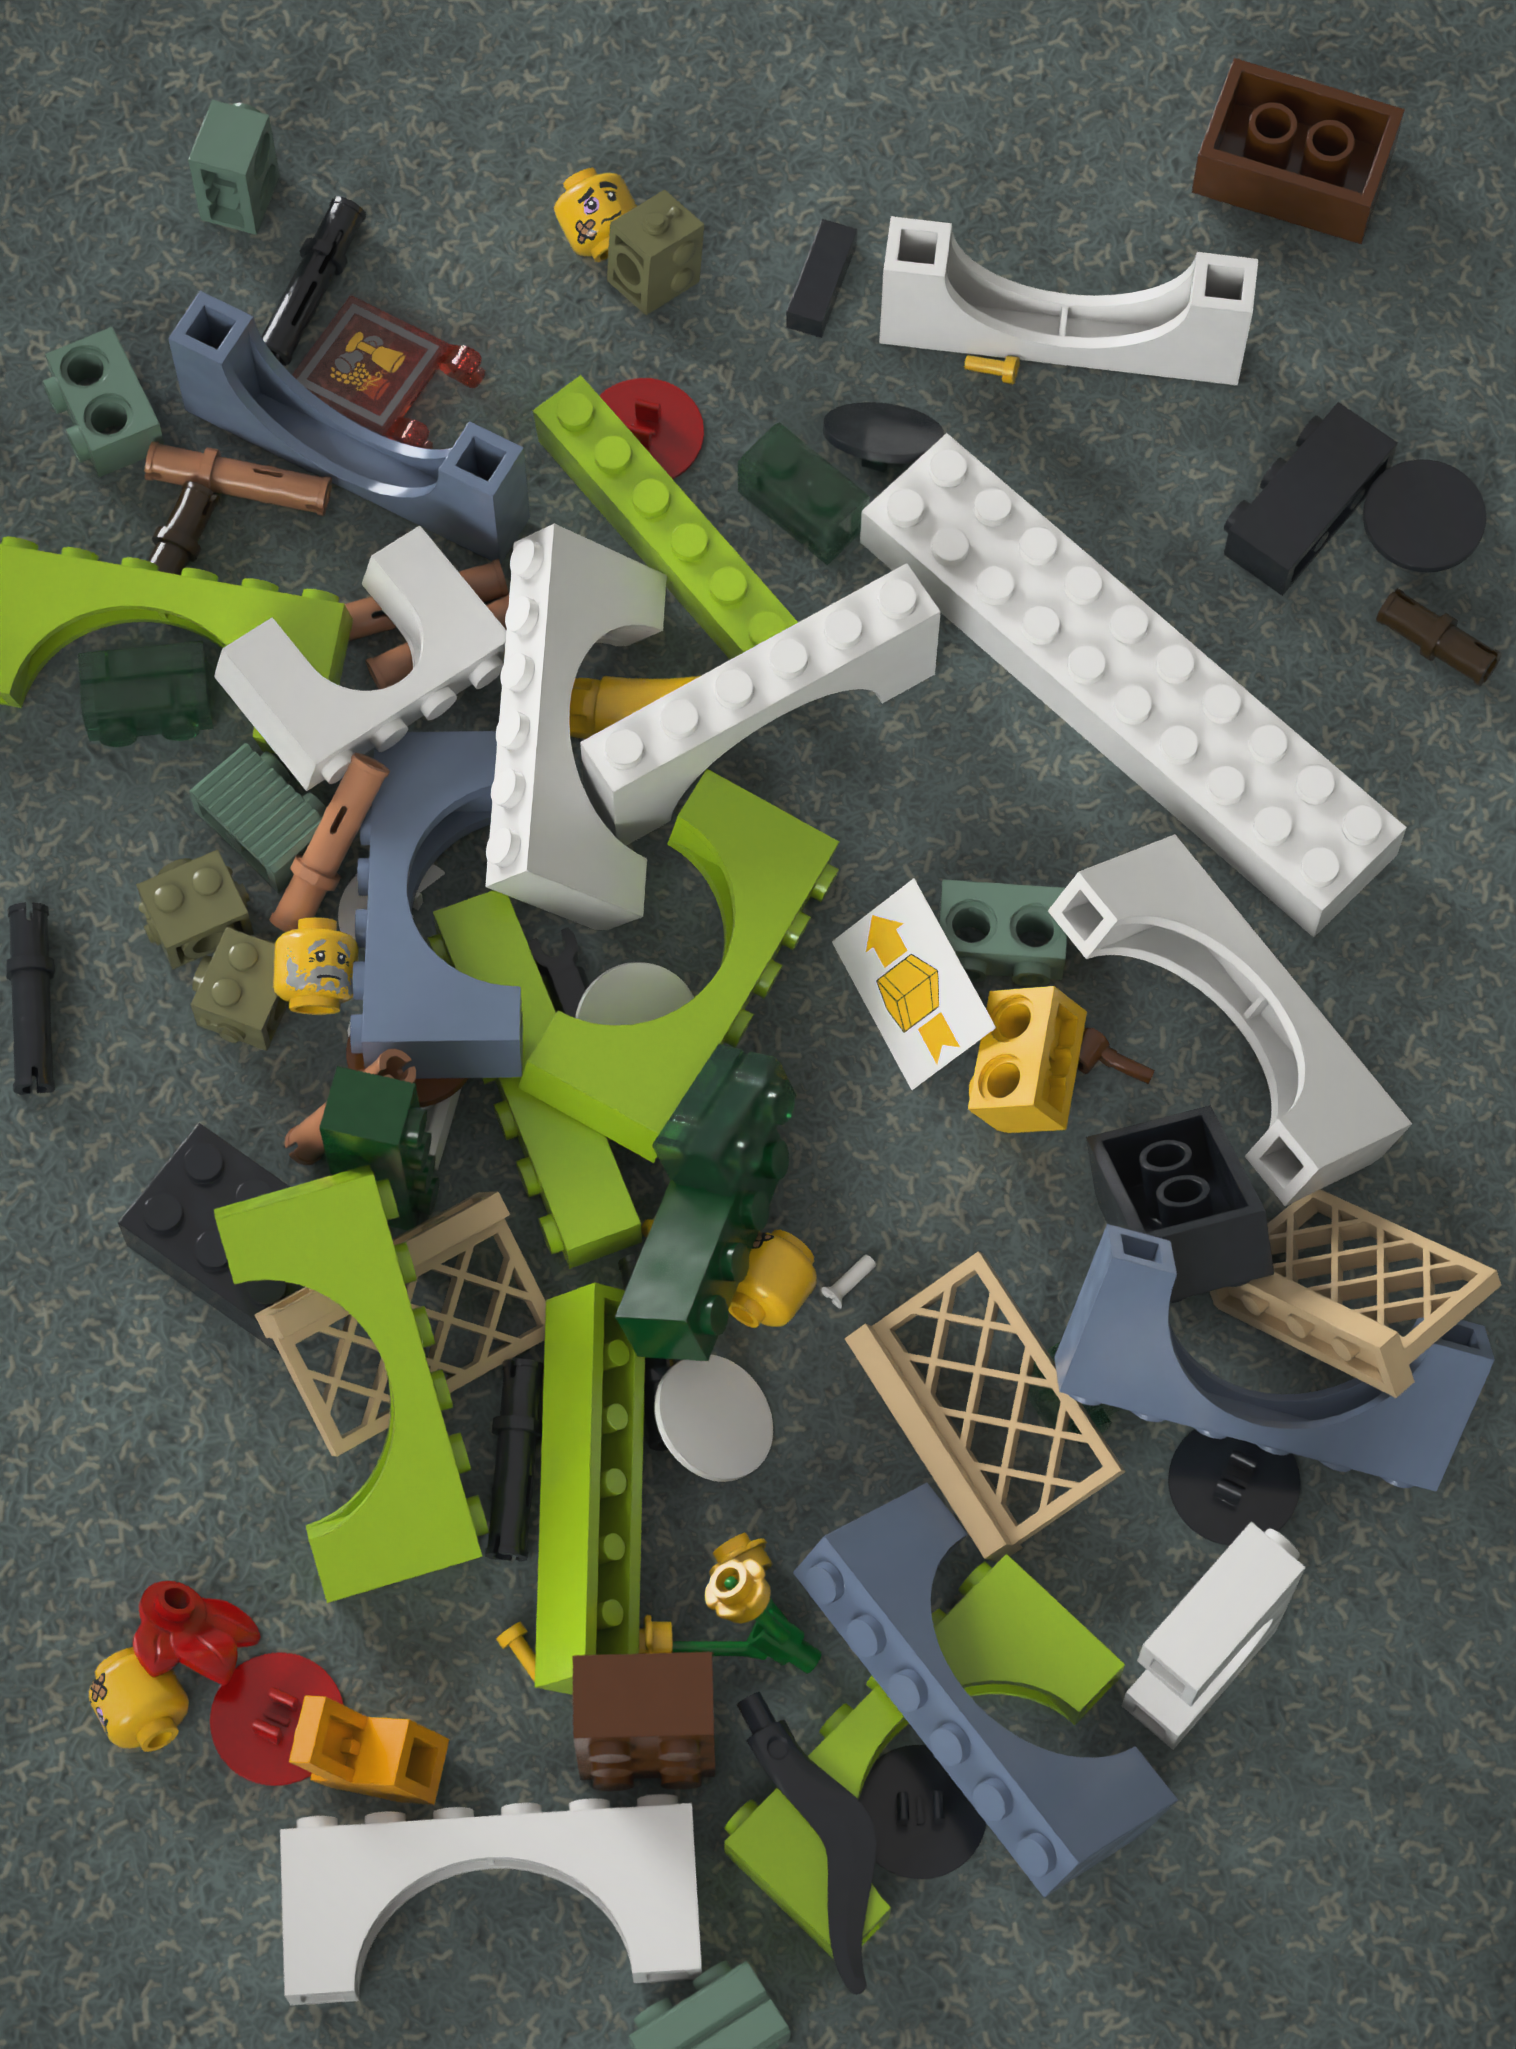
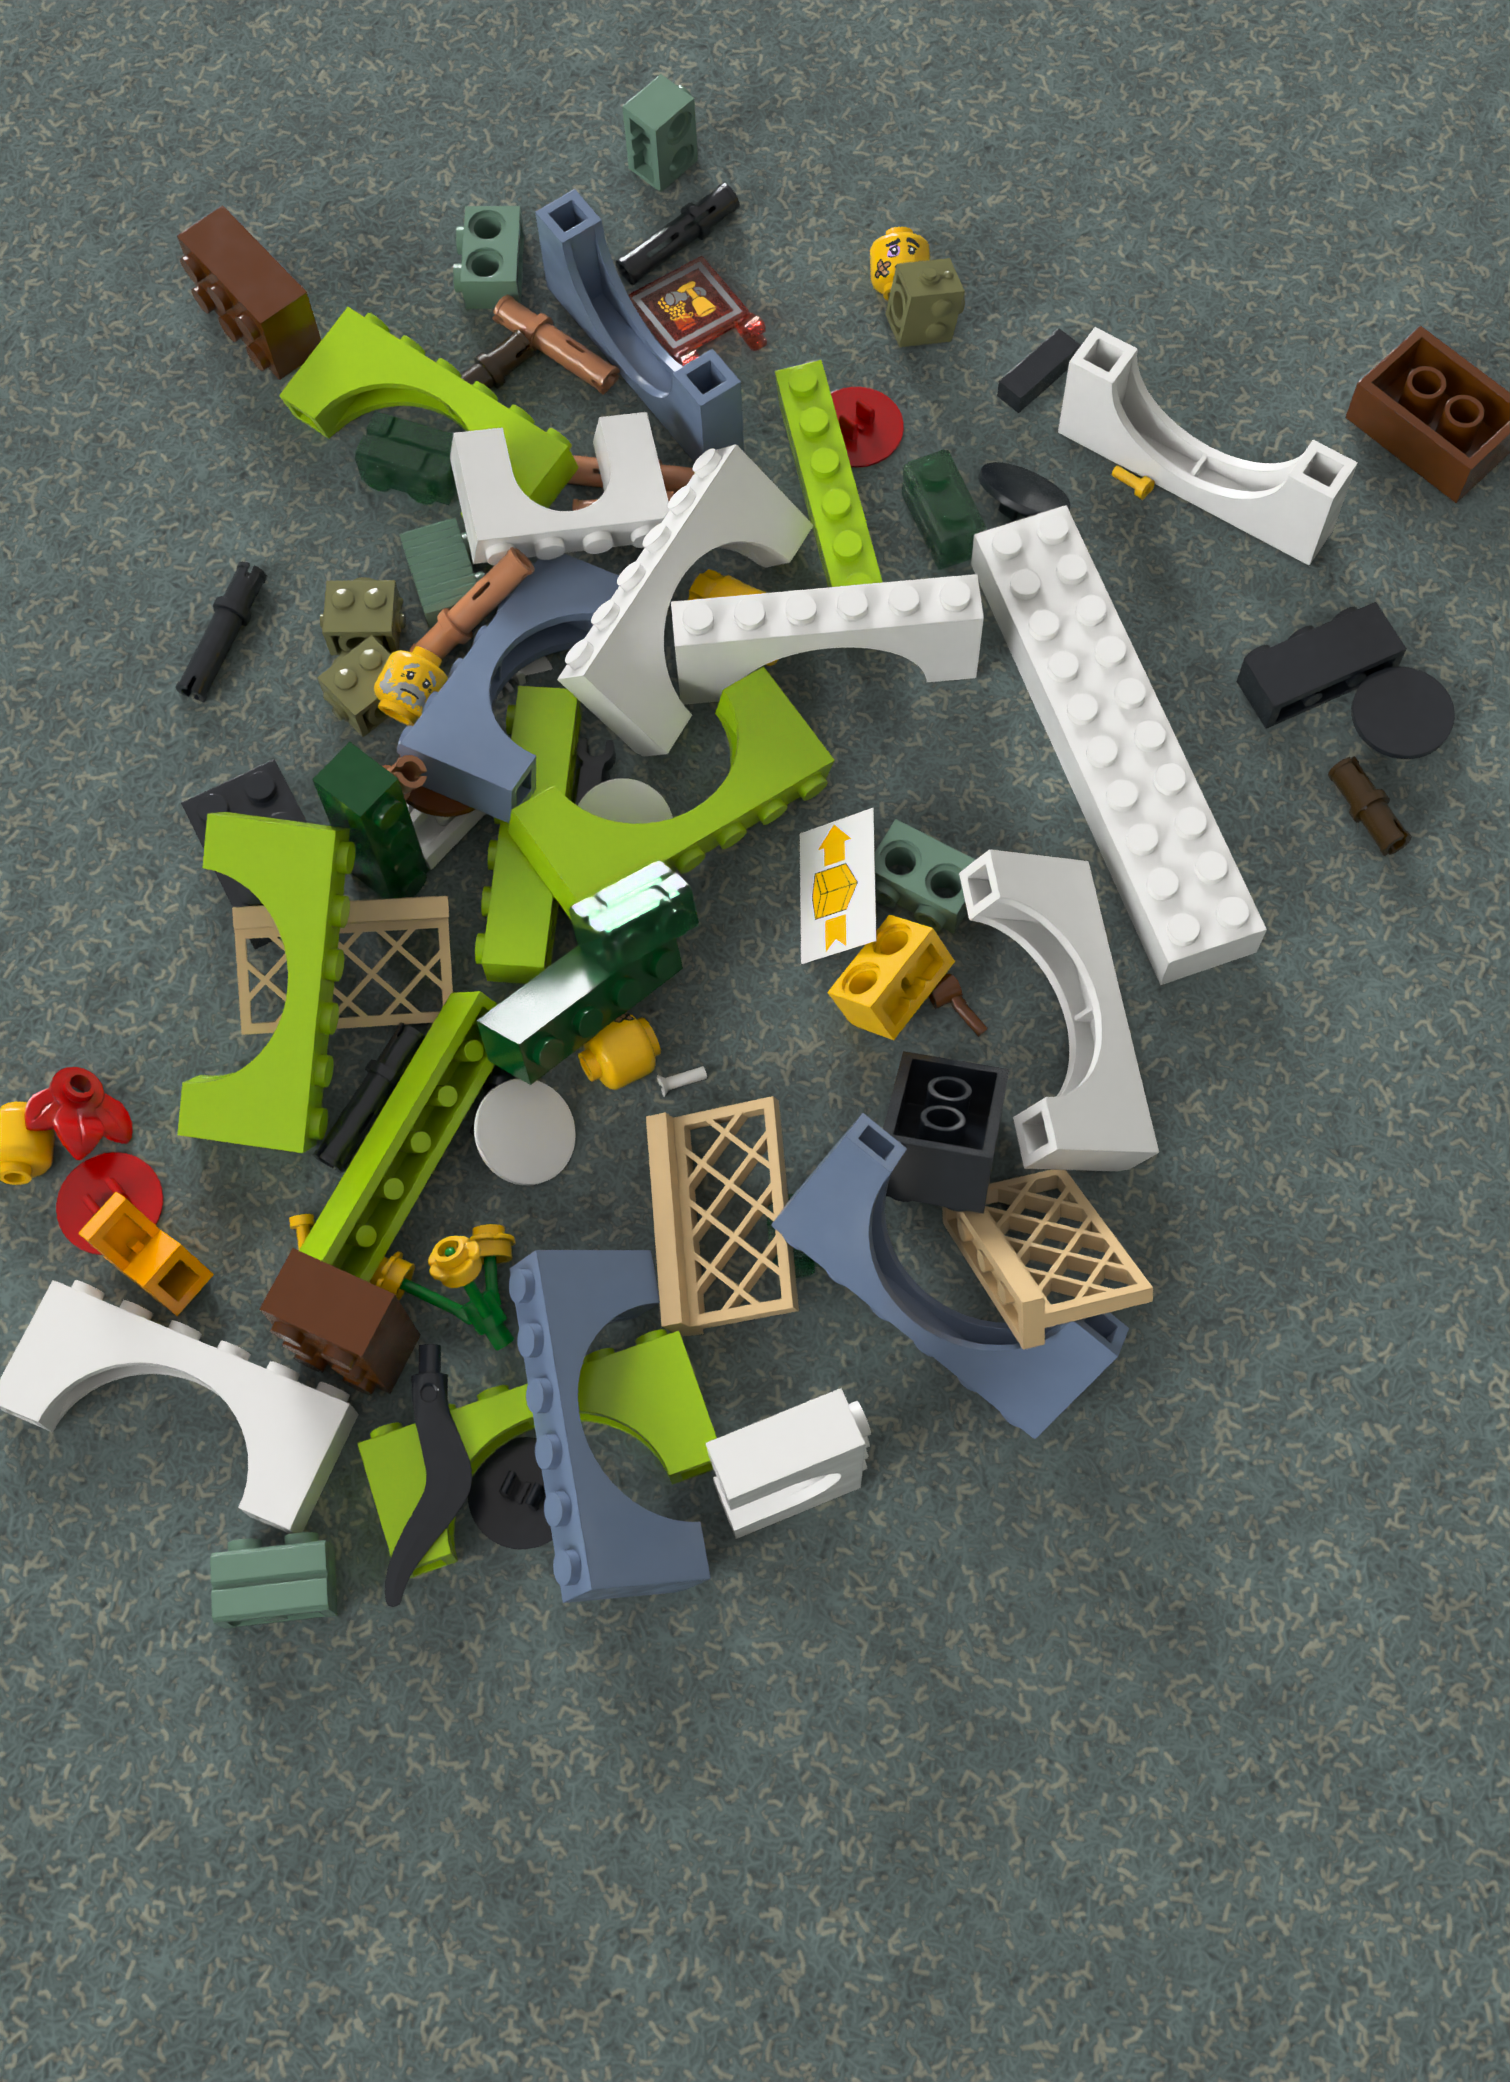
camera: 30 degrees right, 0 degrees up
(1228, 1484) = (883, 1366): black piece -> none

